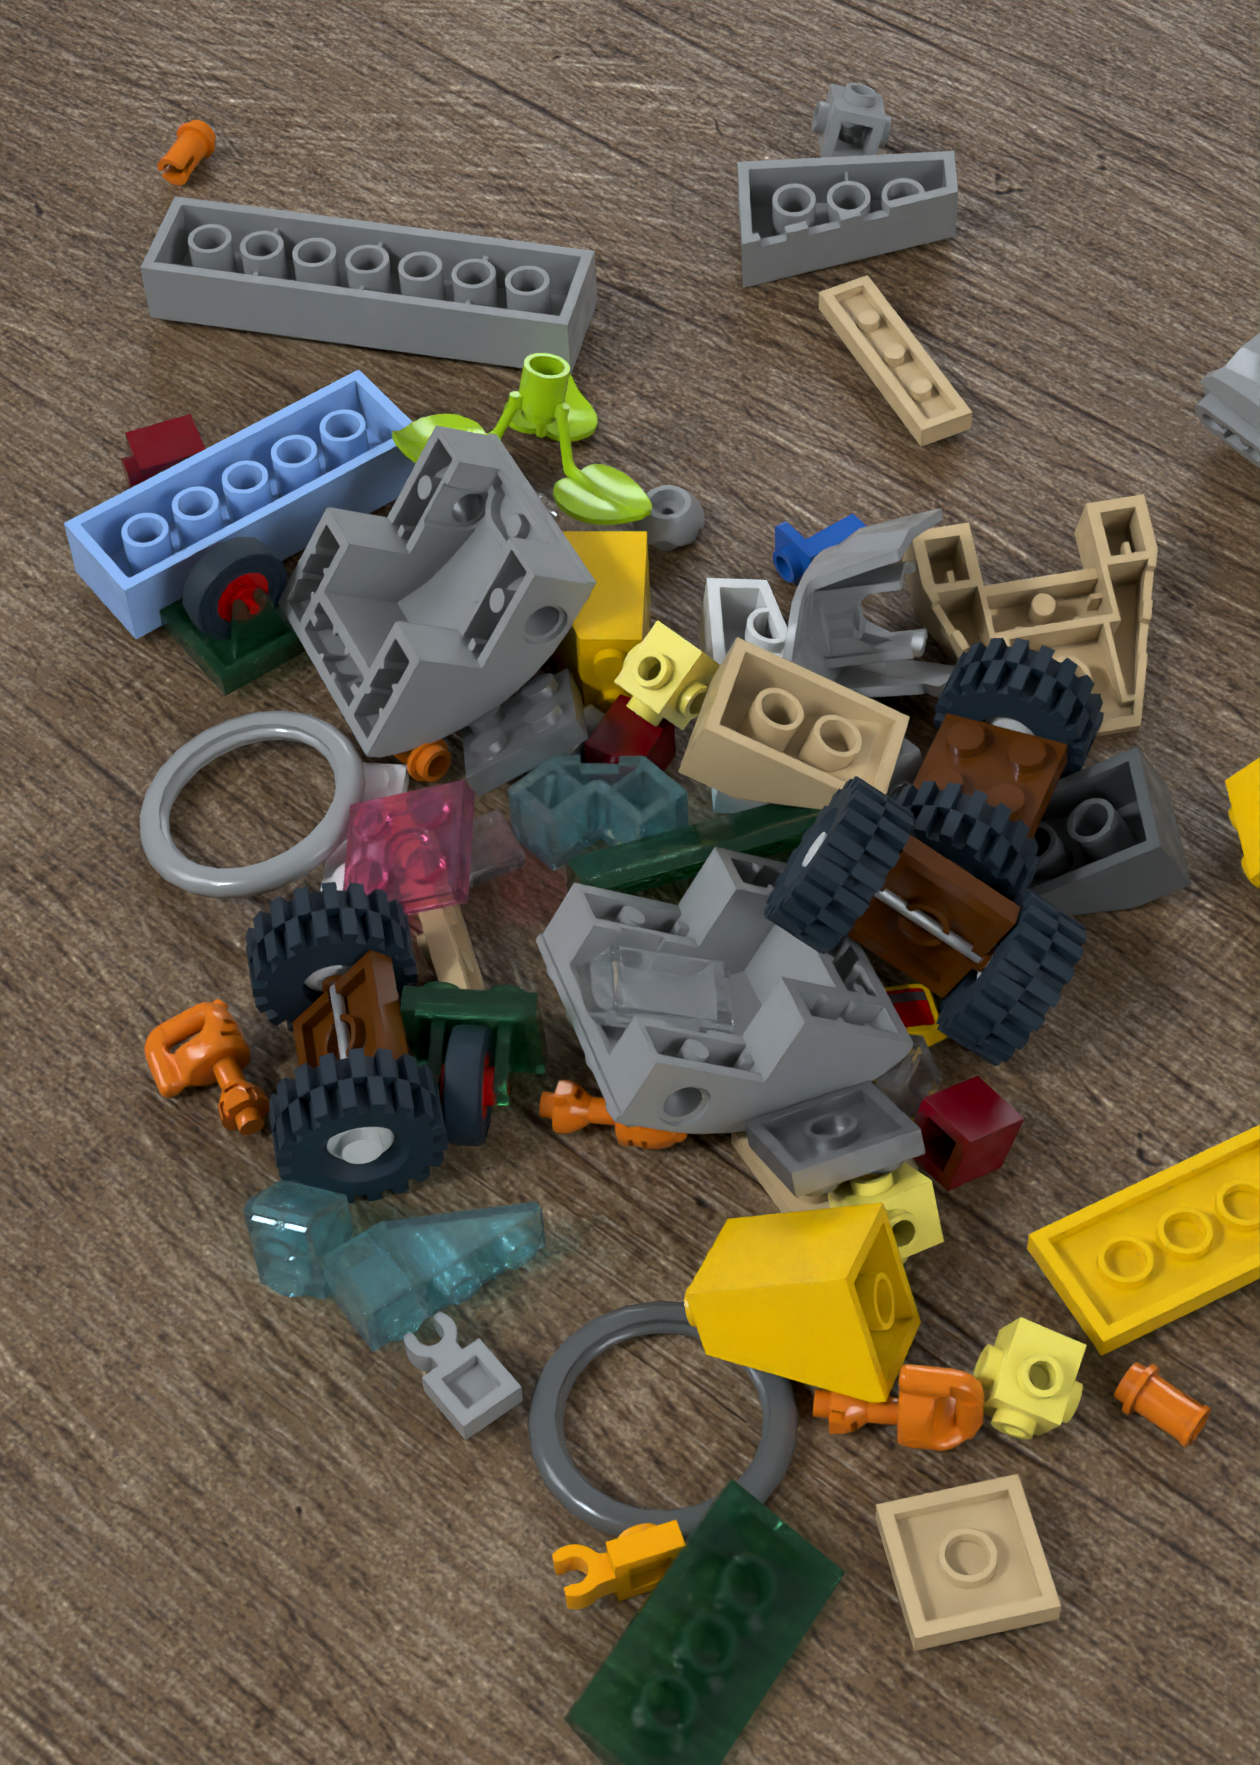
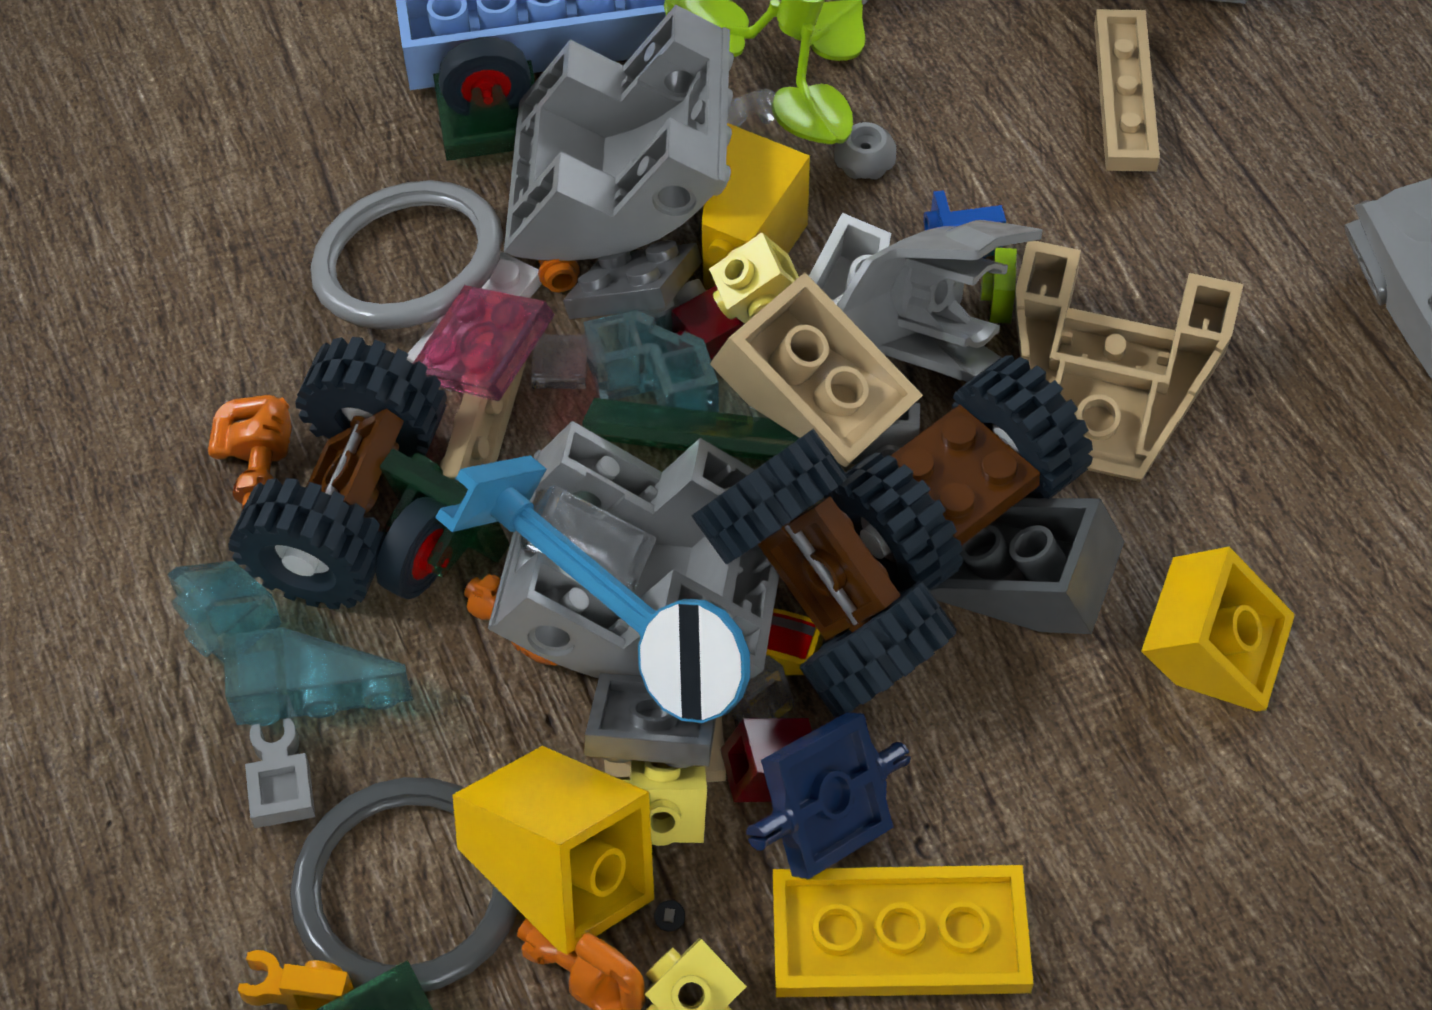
camera: 25 degrees right, 5 degrees up
(852, 1049) = (687, 650): none -> piece
(898, 607) = (1001, 288): none -> lime plate
(946, 1330) = (669, 916): none -> black piece
(1047, 1134) = (827, 794): none -> dark blue plate

